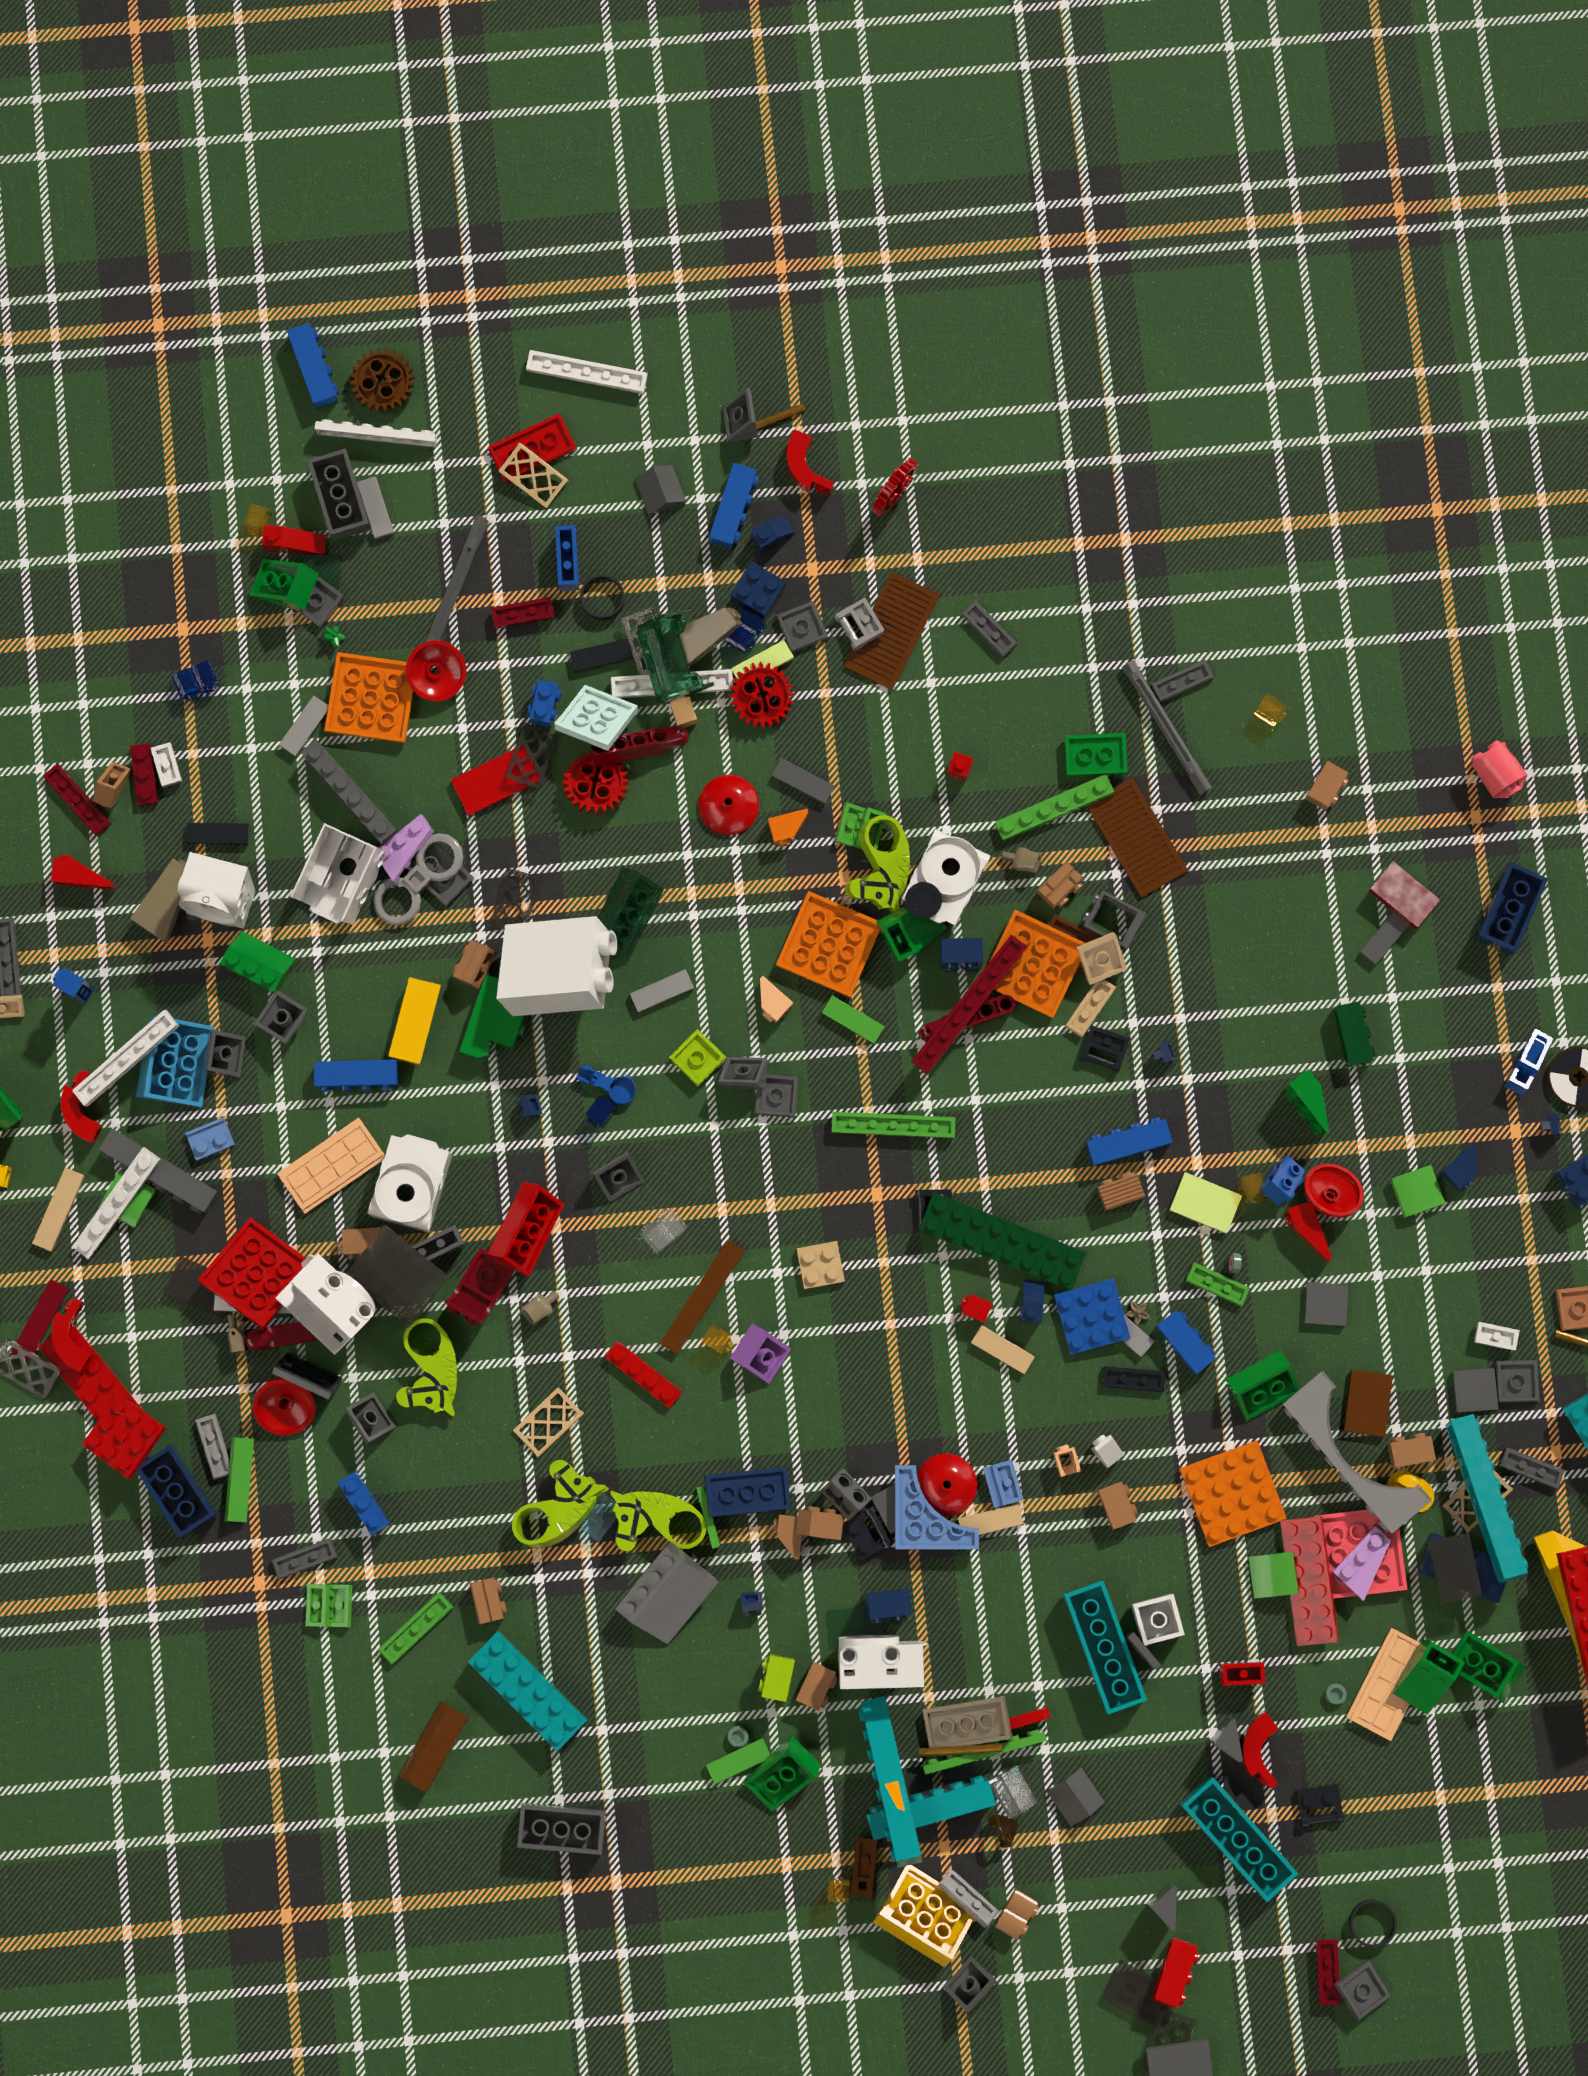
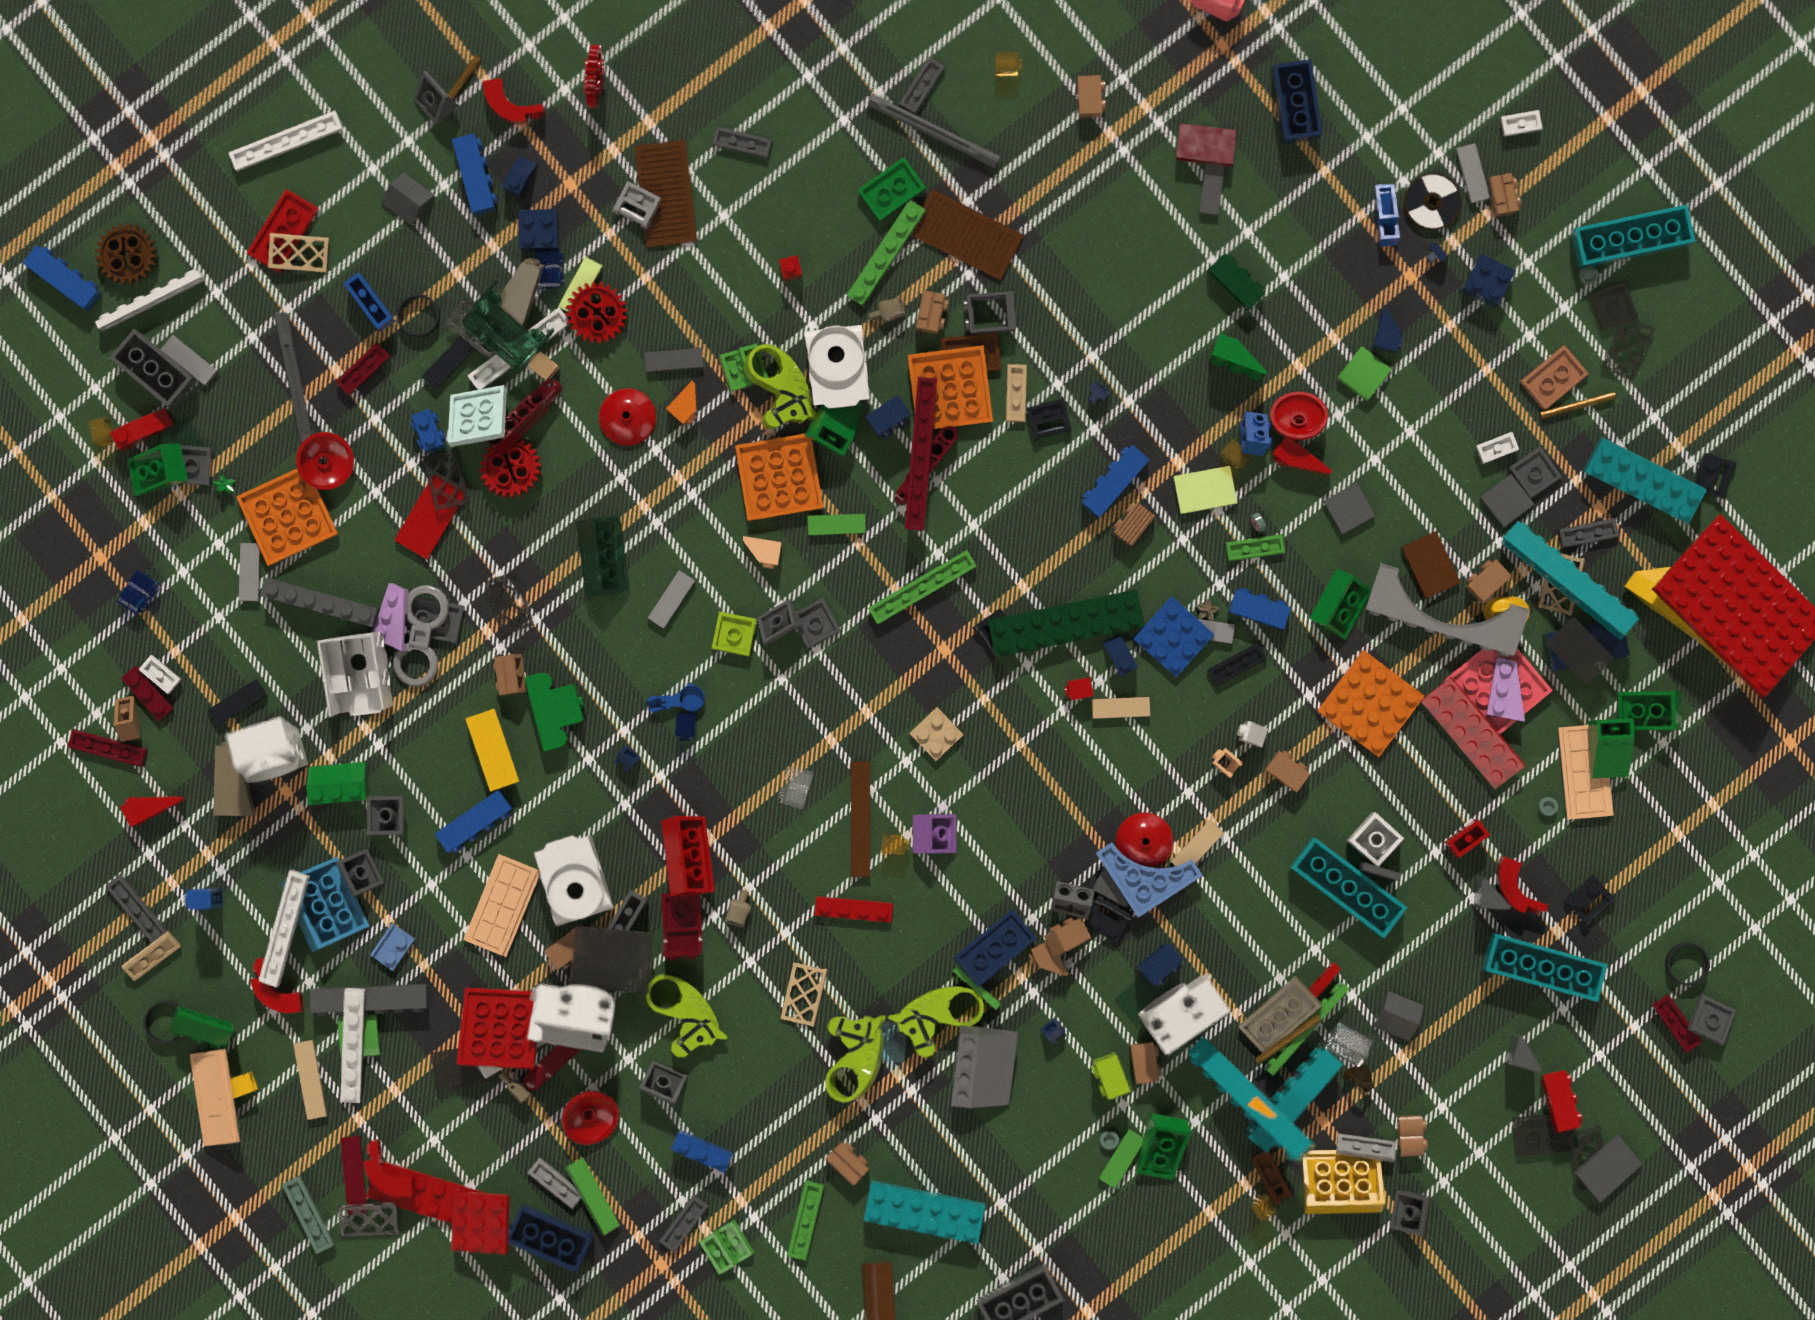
camera: 30 degrees left, 5 degrees up
(307, 1375) = (592, 1082): black tile -> none
(555, 966) = (576, 635): white brick -> none
(618, 1176) = (733, 768): dark grey slope -> none
(802, 627) = (592, 236): dark grey tile -> none
(923, 900) = (832, 395): black piece -> none
(1003, 1483) = (1188, 812): medium blue plate -> none
(1101, 958) = (1001, 349): tan plate -> none
(1273, 1575) = (1442, 746): bright green slope -> none

